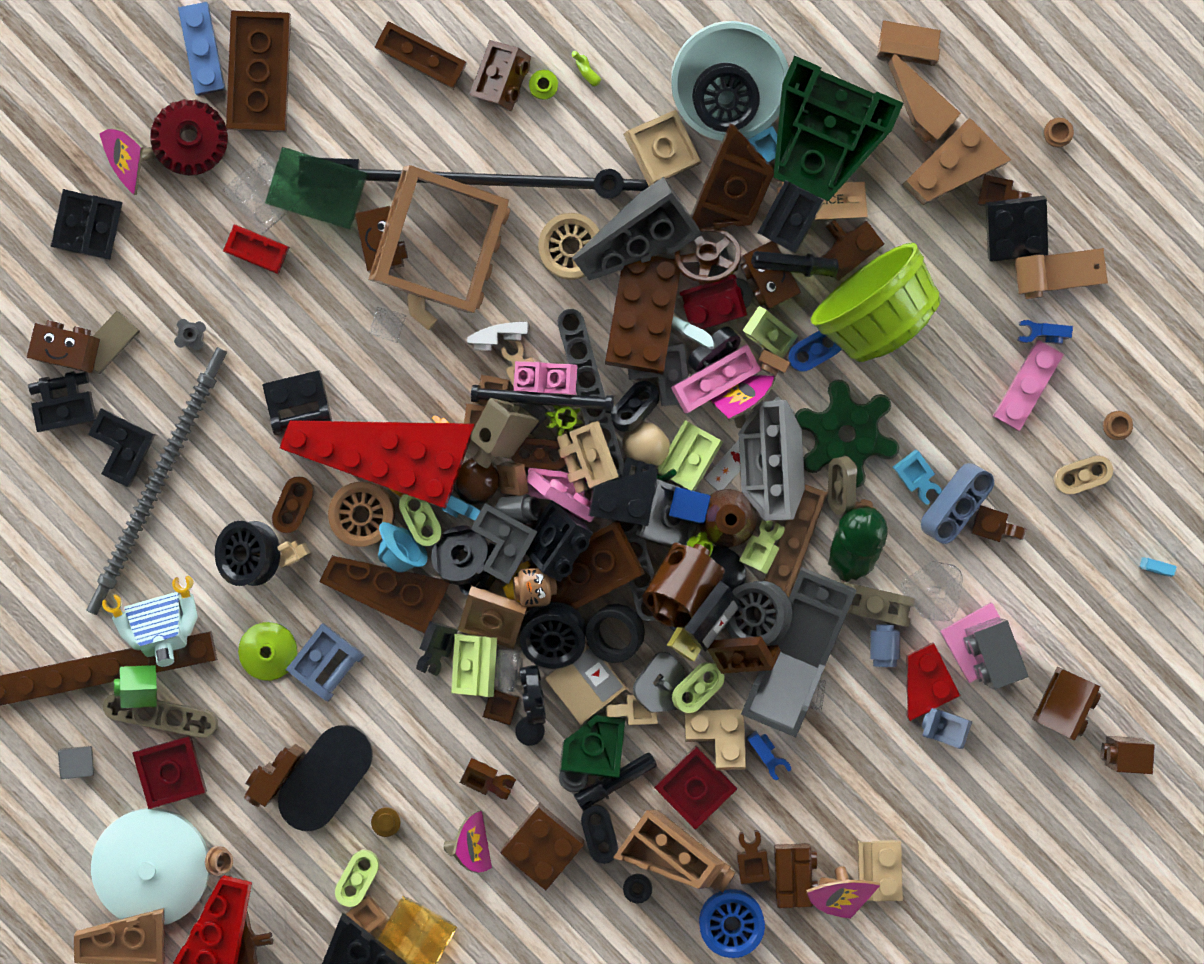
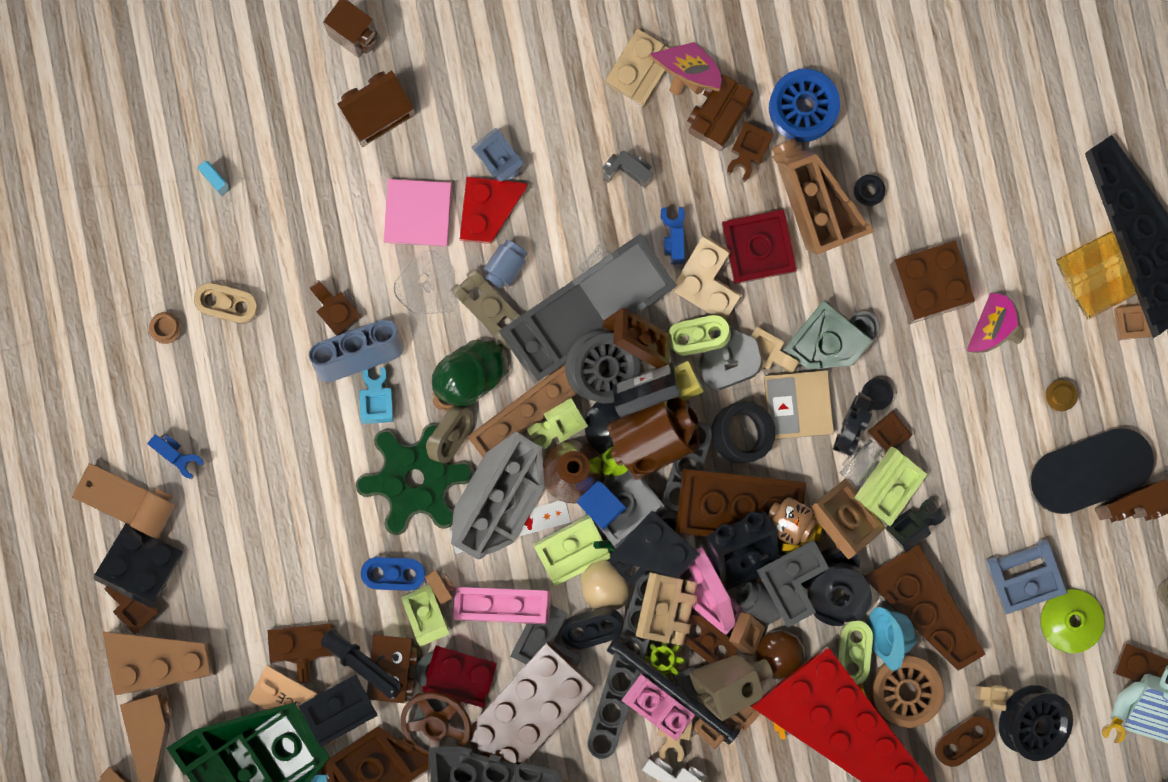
camera: 150 degrees left, 5 degrees down
(356, 877) = (1118, 361): yellowish green plate -> none
(458, 506) = (813, 641): medium azure plate -> none
(484, 779) = (946, 377): reddish brown plate -> none
(550, 650) = (801, 466): black wheel -> none
(599, 833) = (872, 262): black plate -> none
(605, 786) = (839, 299): black axle -> none
(693, 333) = (495, 661): light aqua piece -> none
(725, 342) = (485, 634): black beam -> none
(743, 397) = (488, 572): shield -> none
(832, 787) = (635, 168): none -> dark grey bracket
(880, 305) = (310, 575): lime piece -> none
(995, 653) = (411, 193): dark grey brick -> none
(1028, 385) = (221, 416): bright pink plate -> none
(1058, 132) = (42, 629): medium nougat plate -> none

